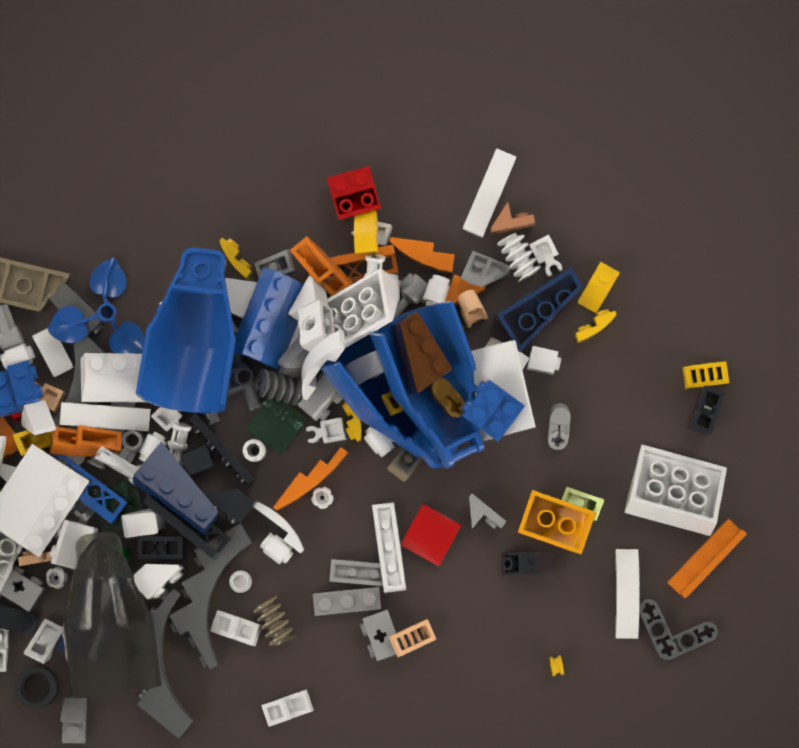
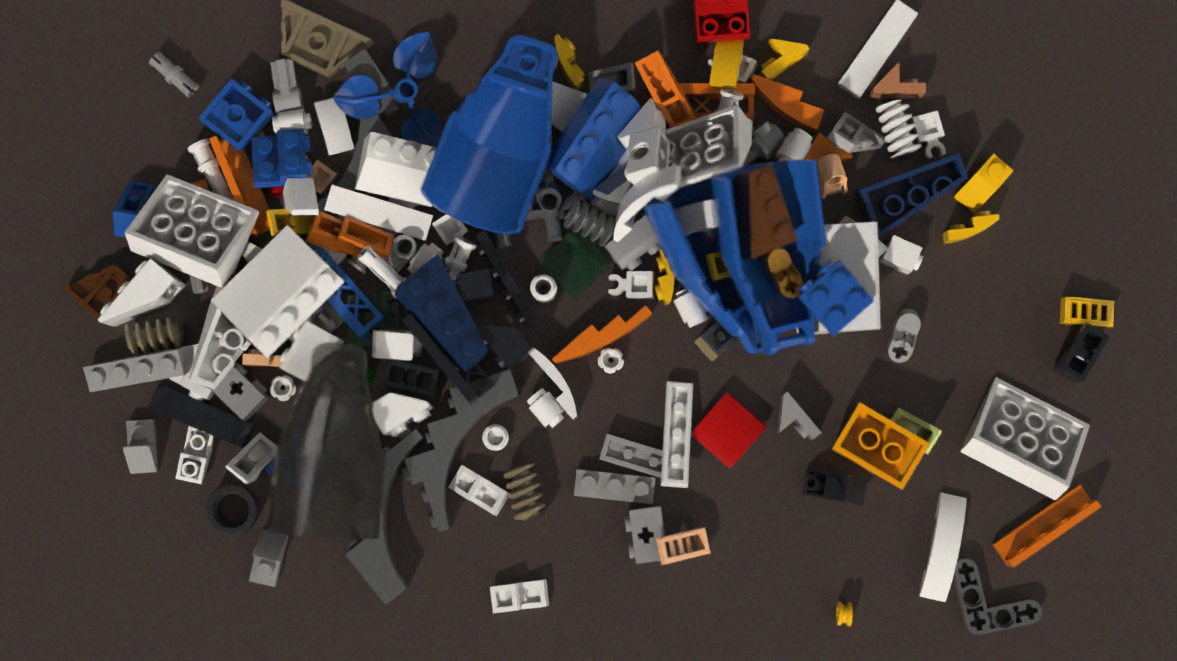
camera: 10 degrees right, 0 degrees up
(415, 213) = (787, 54): none -> yellow slope

